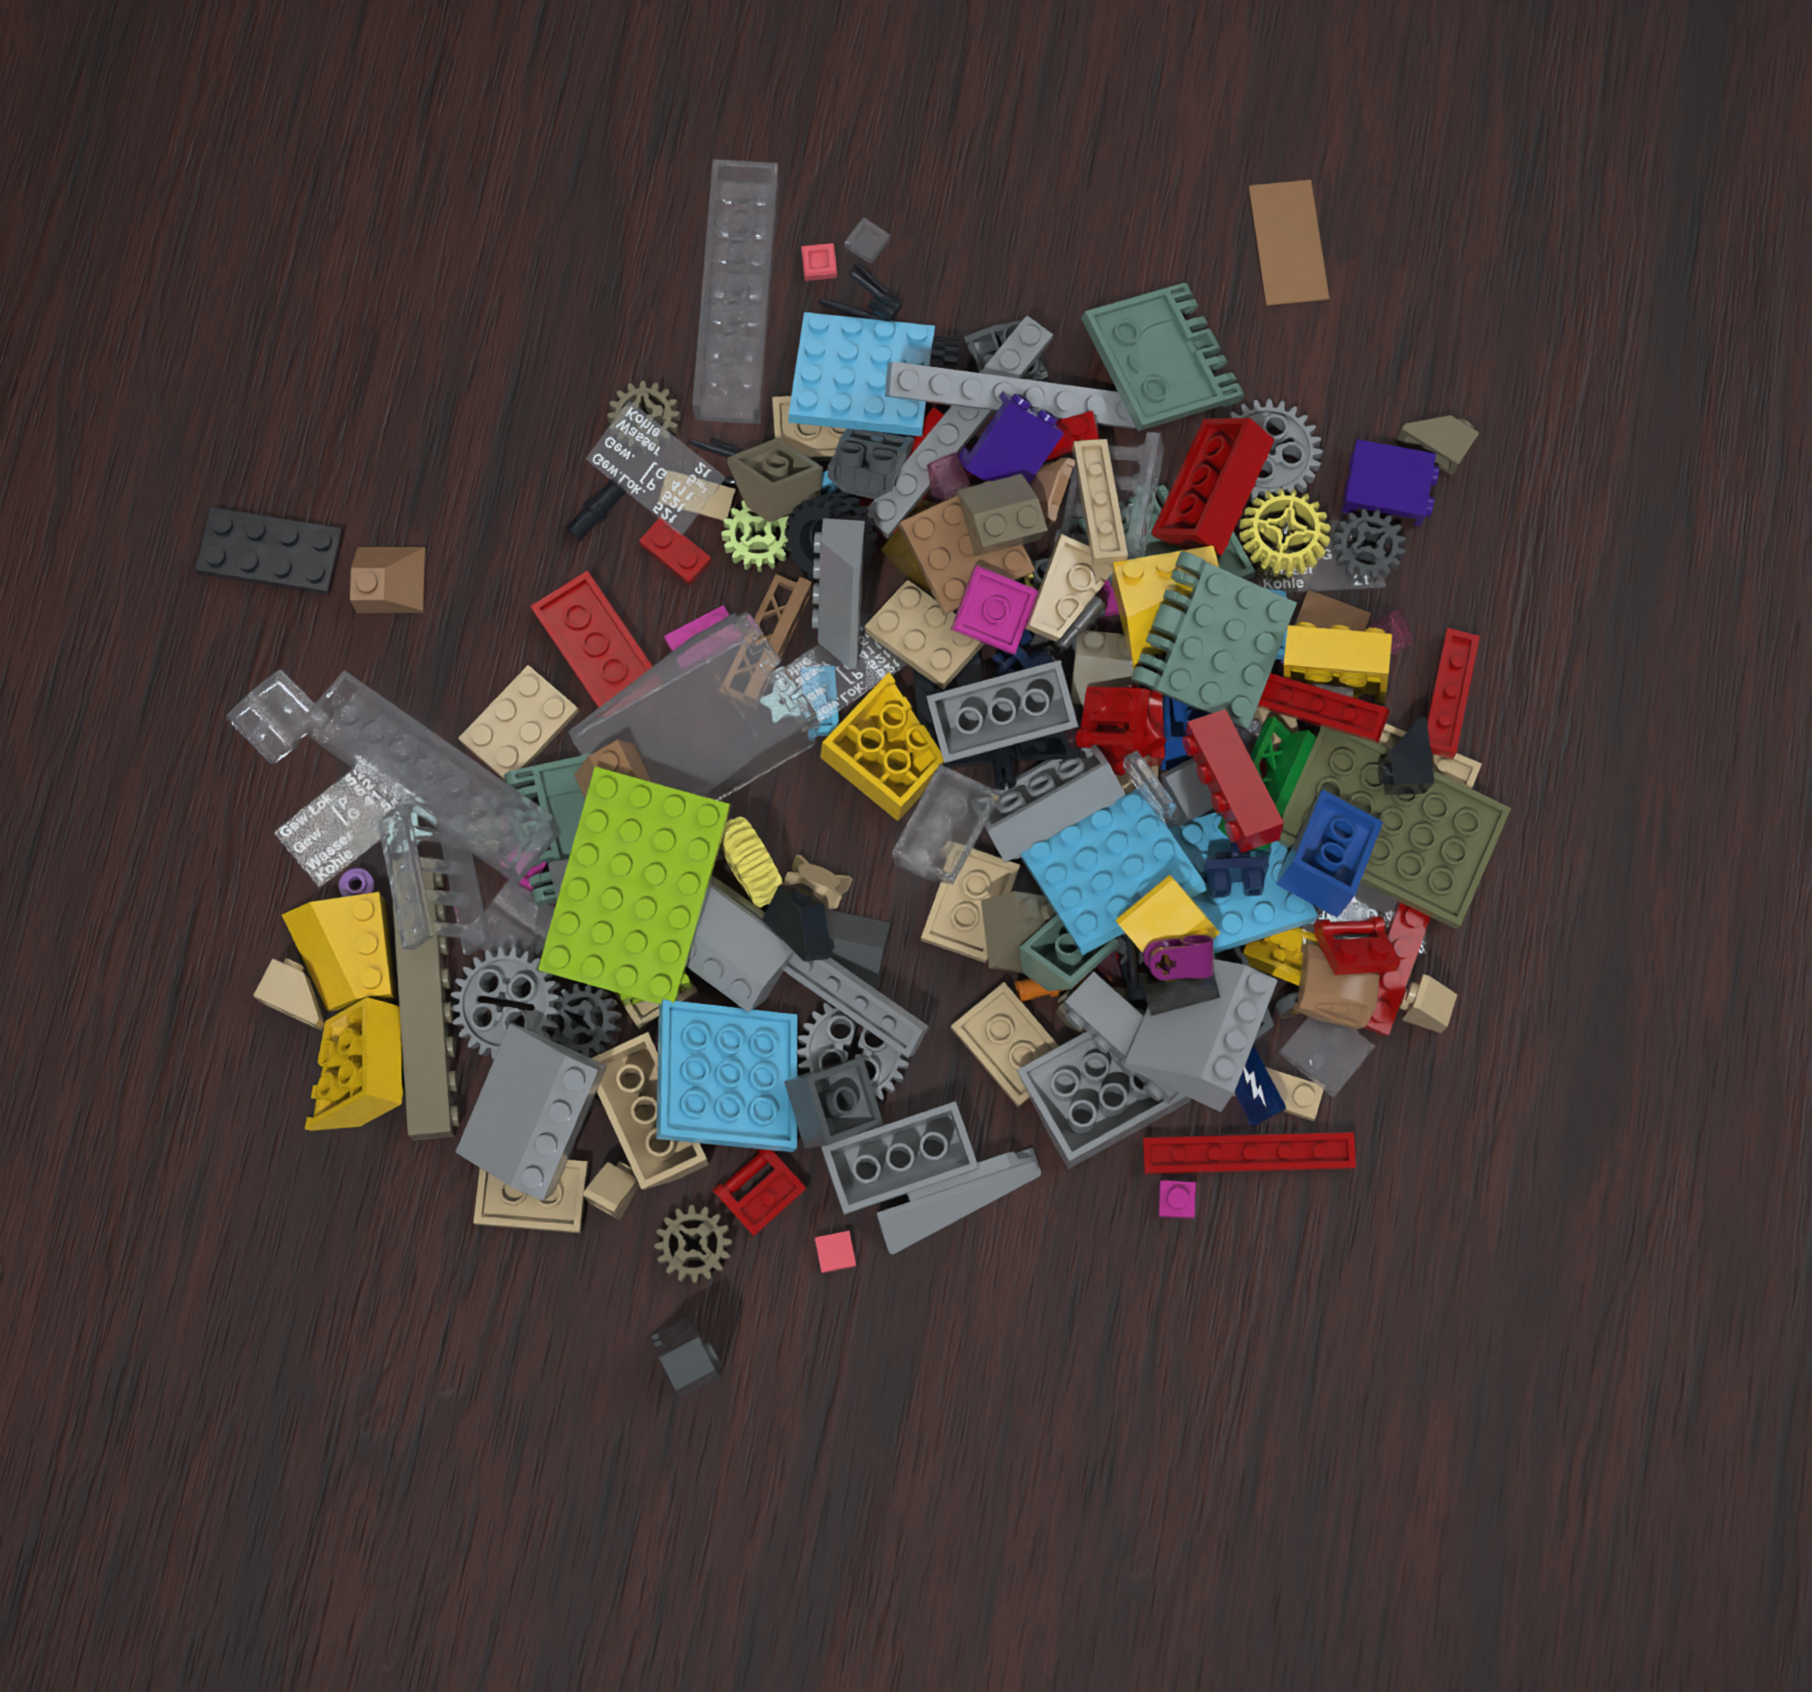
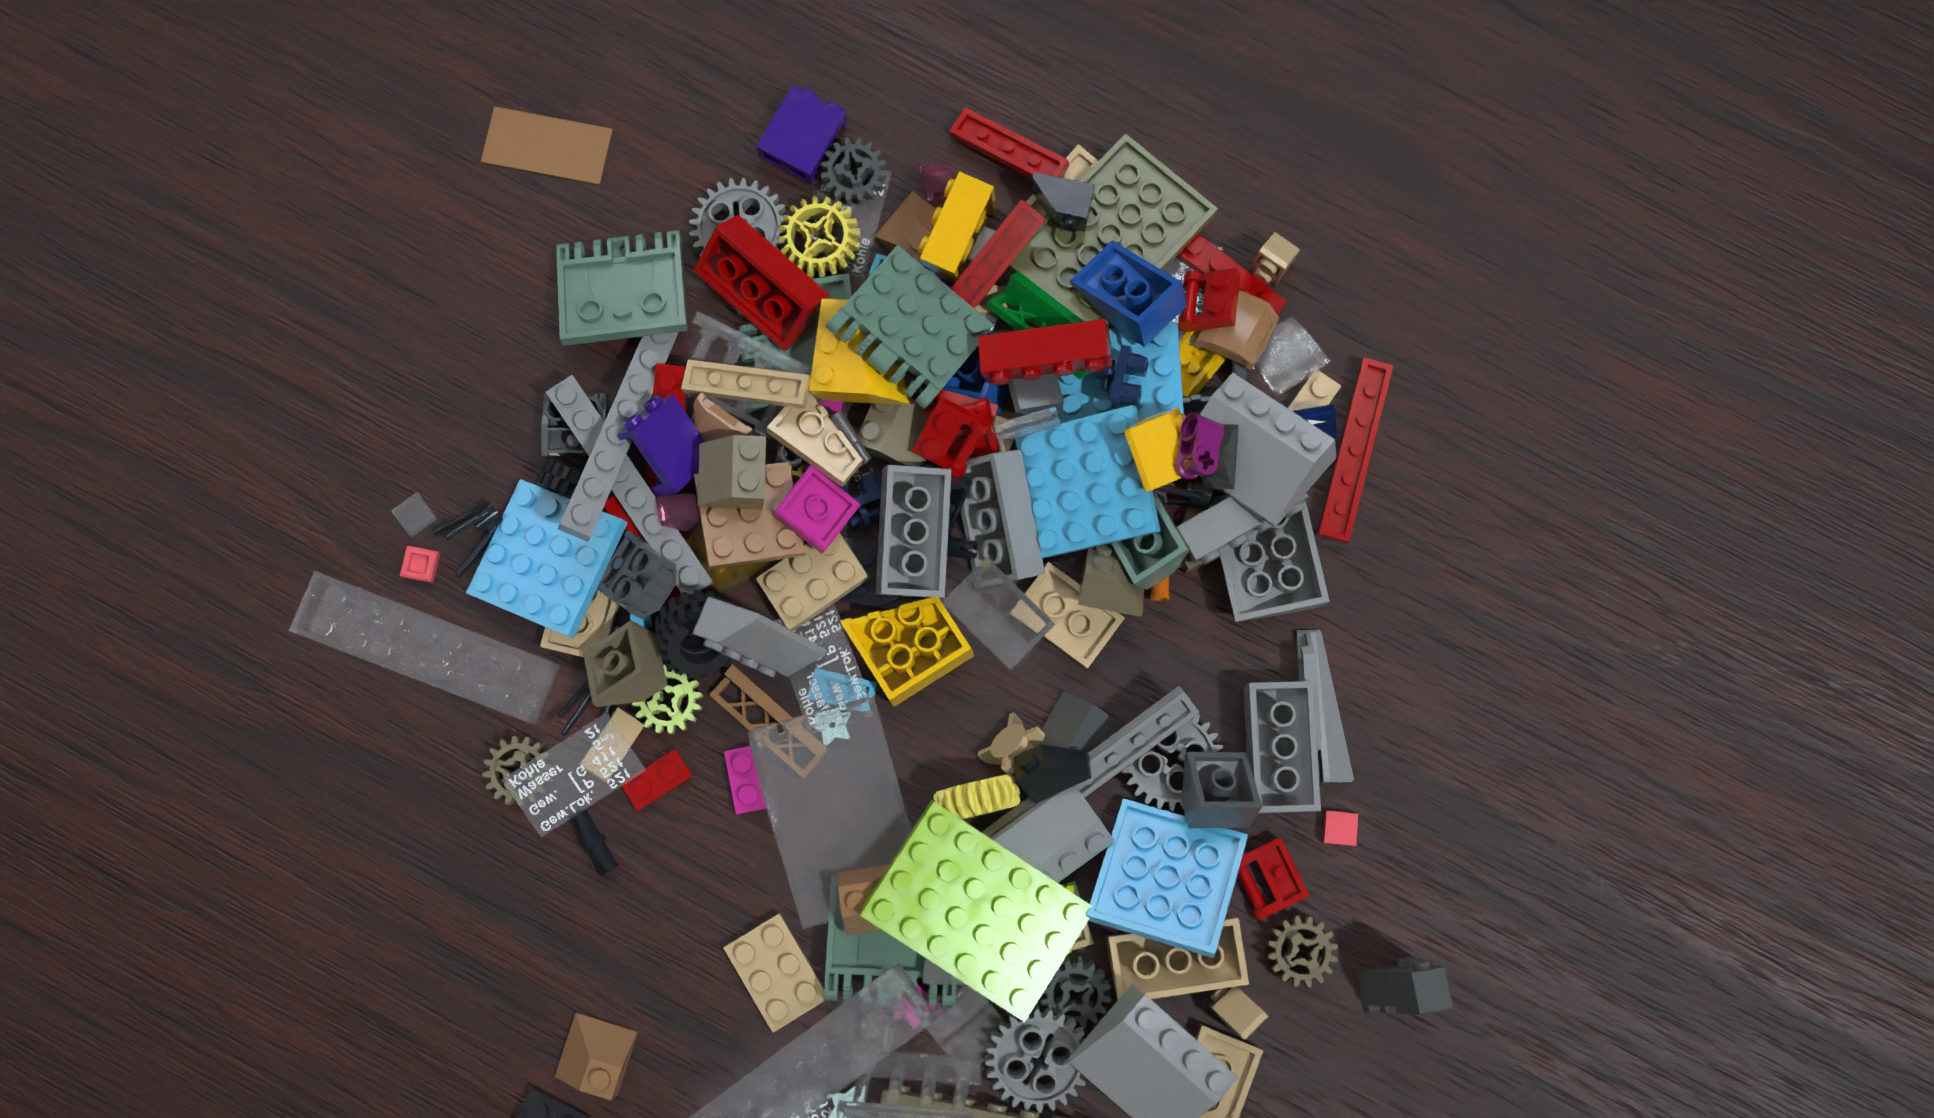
camera: 75 degrees left, 5 degrees up
(591, 638) = (721, 879): red plate -> none
(1004, 1039) = (1198, 623): tan plate -> none
(1176, 1199) = (1375, 523): dark pink plate -> none
(1443, 436) = (777, 74): dark tan slope -> none

